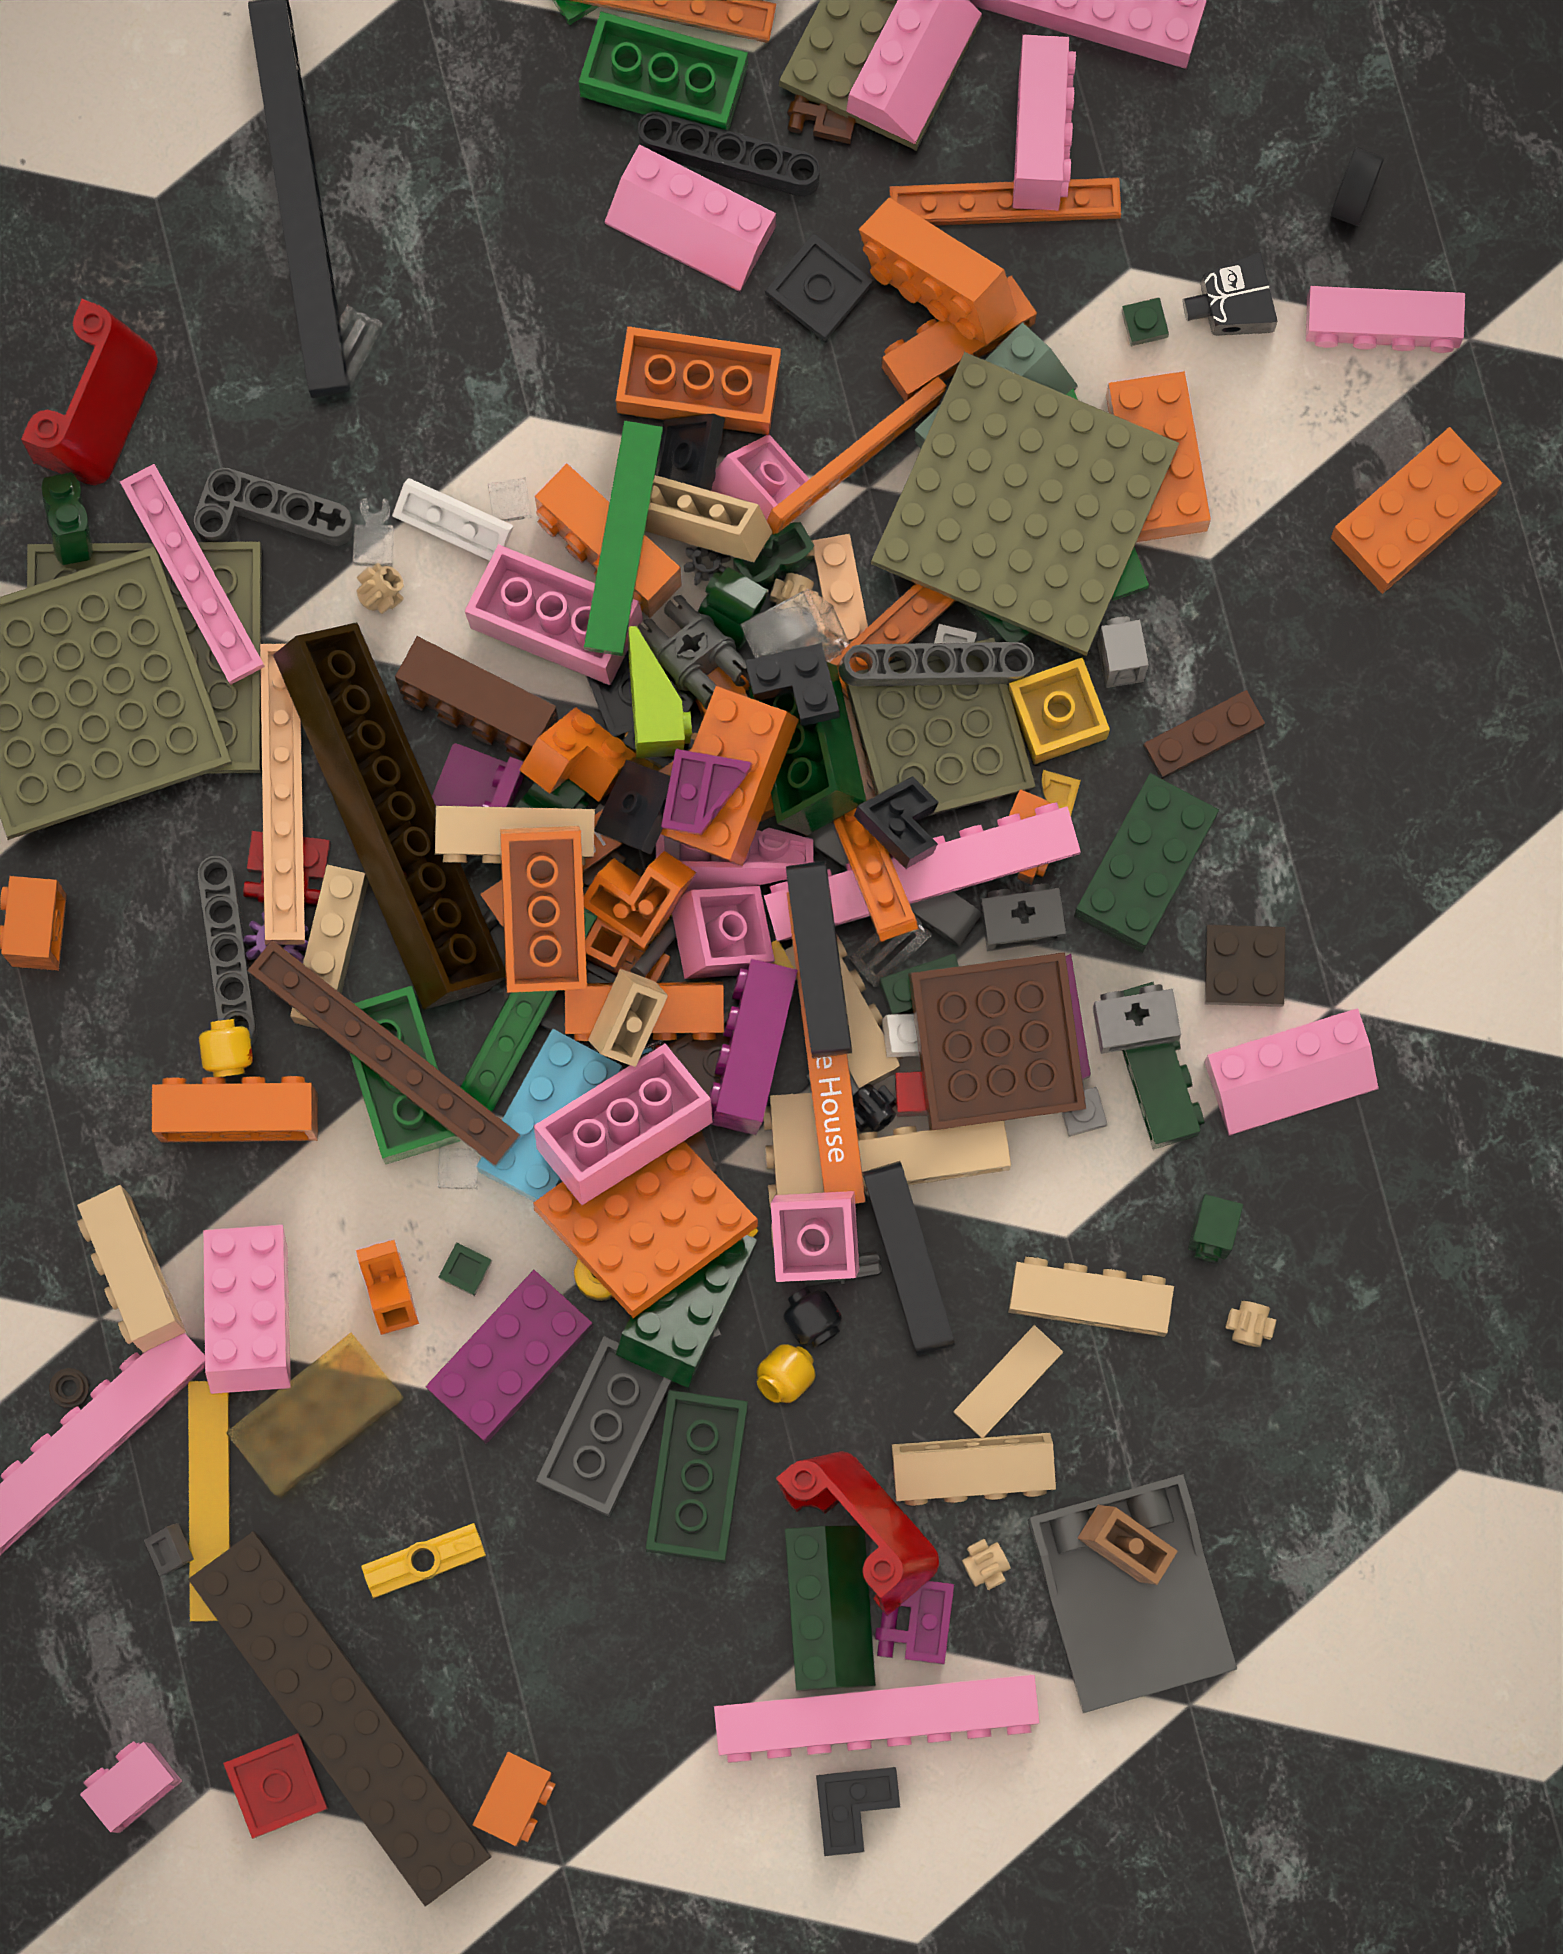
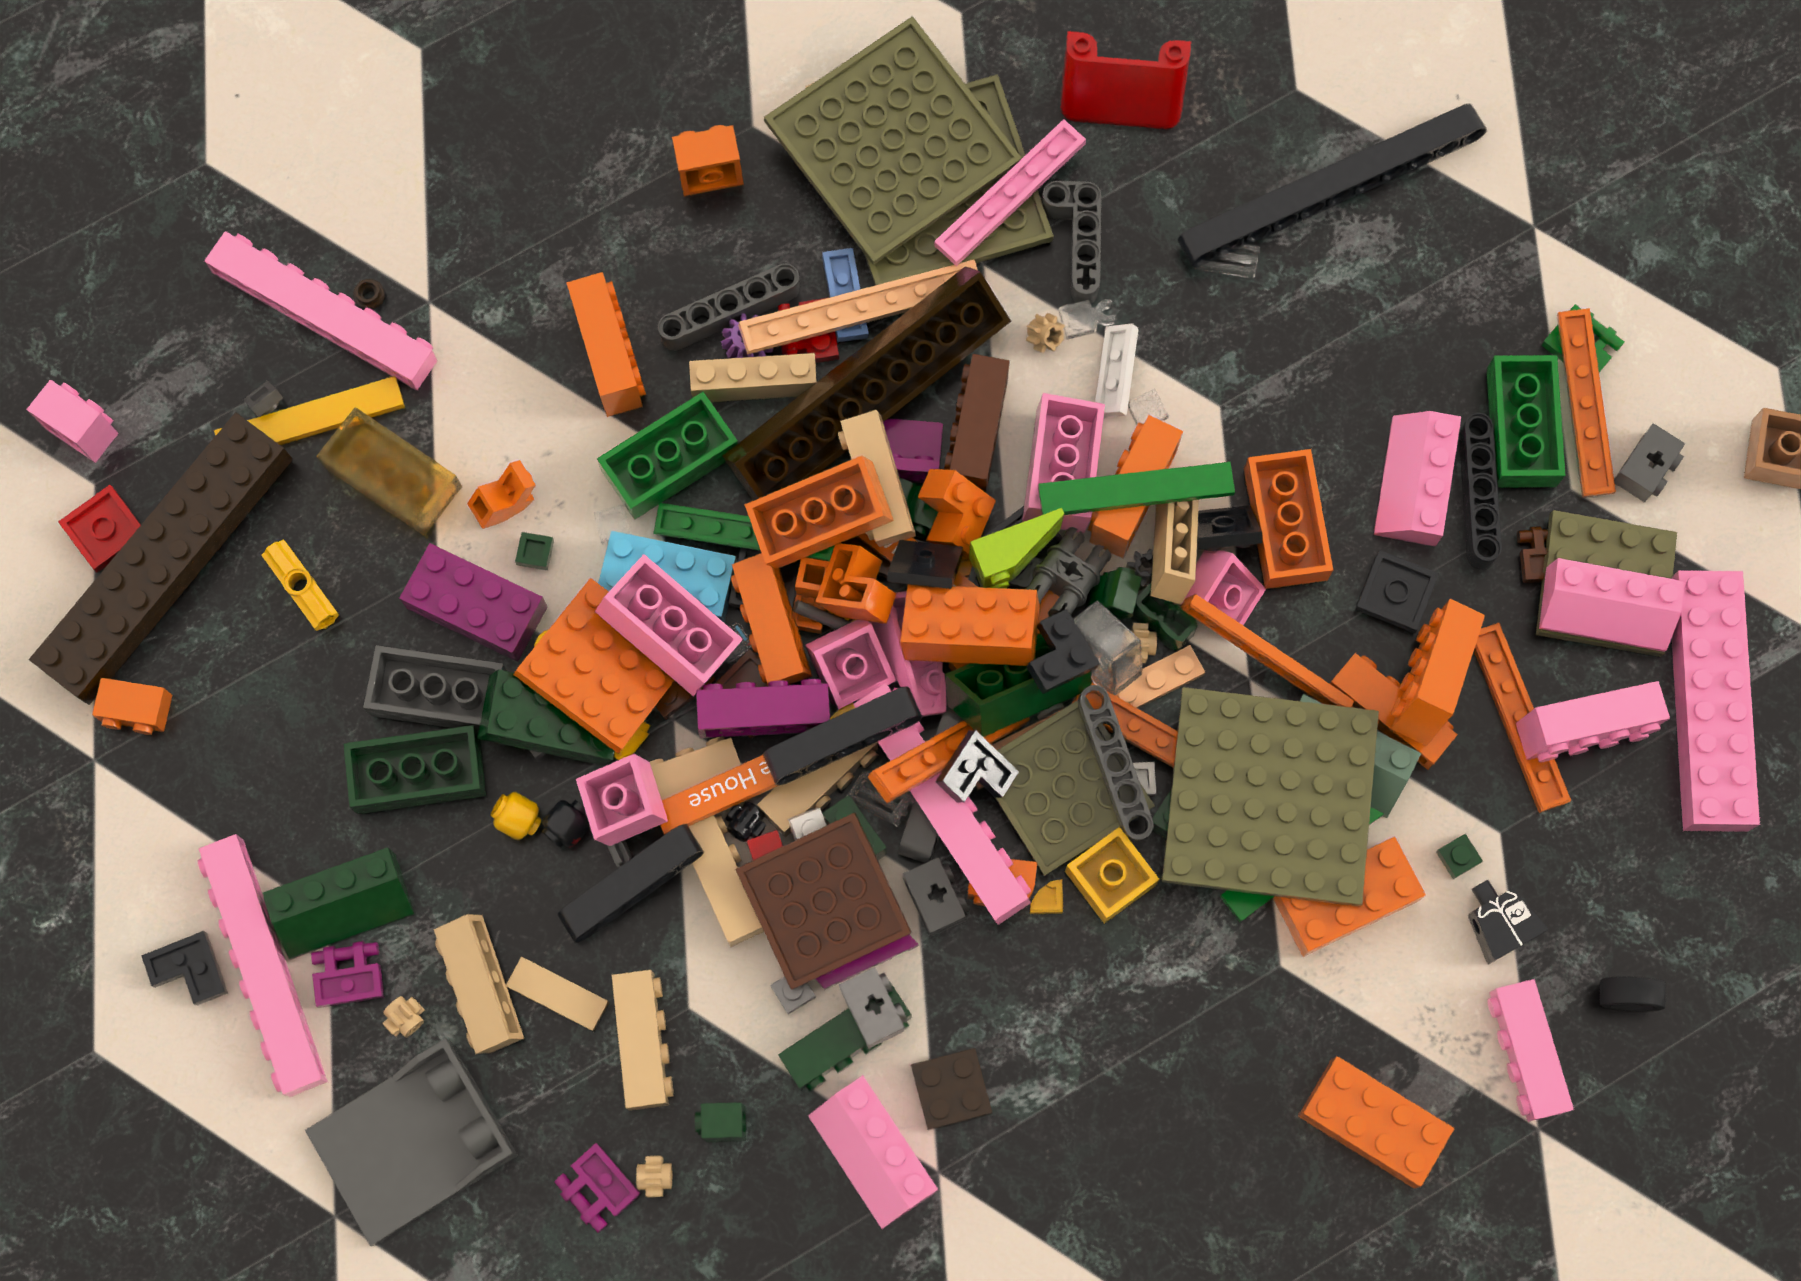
camera: 75 degrees right, 5 degrees down
(67, 518) = (1024, 92): dark green brick -> none
(130, 1269) = (464, 305): tan brick -> none
(225, 1048) = (648, 319): yellow head -> none
(240, 809) = (841, 279): none -> medium blue plate
(246, 1309) = (454, 395): bright pink brick -> none
(384, 1053) = (675, 434): reddish brown plate -> none
(627, 1017) = (752, 602): tan brick -> none
(700, 789) = (946, 599): magenta wing -> none
(903, 1555) = (408, 921): red windscreen -> none
(1122, 652) = (1175, 911): light grey brick -> none
(1127, 1544) = (440, 1122): medium nougat brick -> none
(1146, 863) = (1009, 982): dark green brick -> none
(1204, 734) = (1132, 1001): reddish brown plate -> none
(1237, 1382) = (604, 1180): none -> magenta plate

